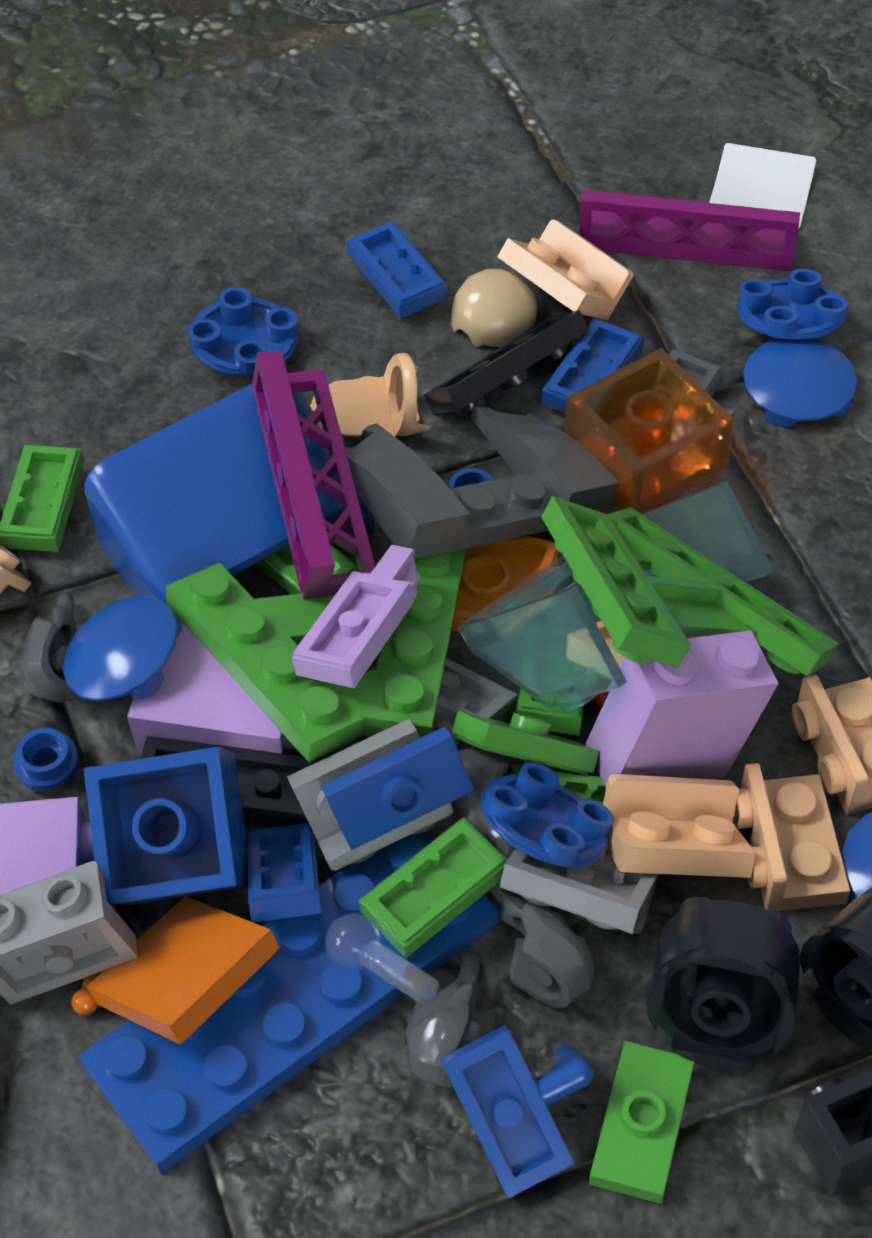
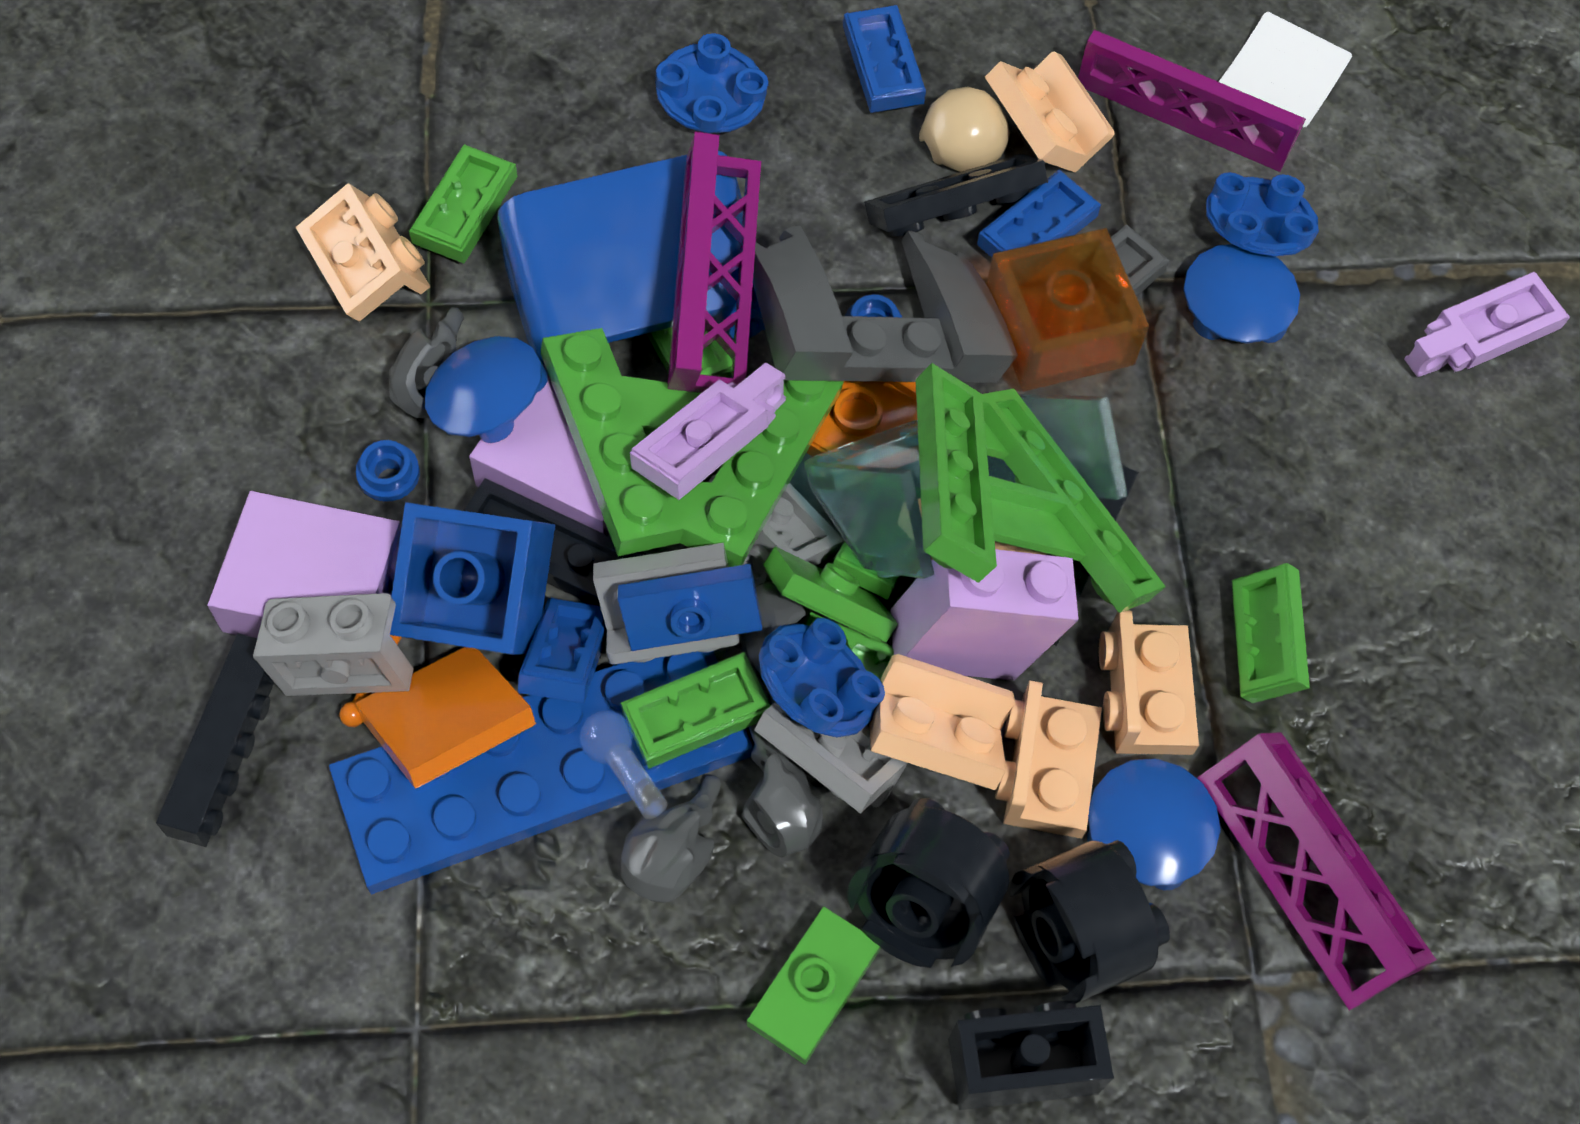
camera: 10 degrees right, 10 degrees up
(379, 400) = (812, 198): light nougat piece -> none
(511, 1107) = (694, 939): blue plate -> none

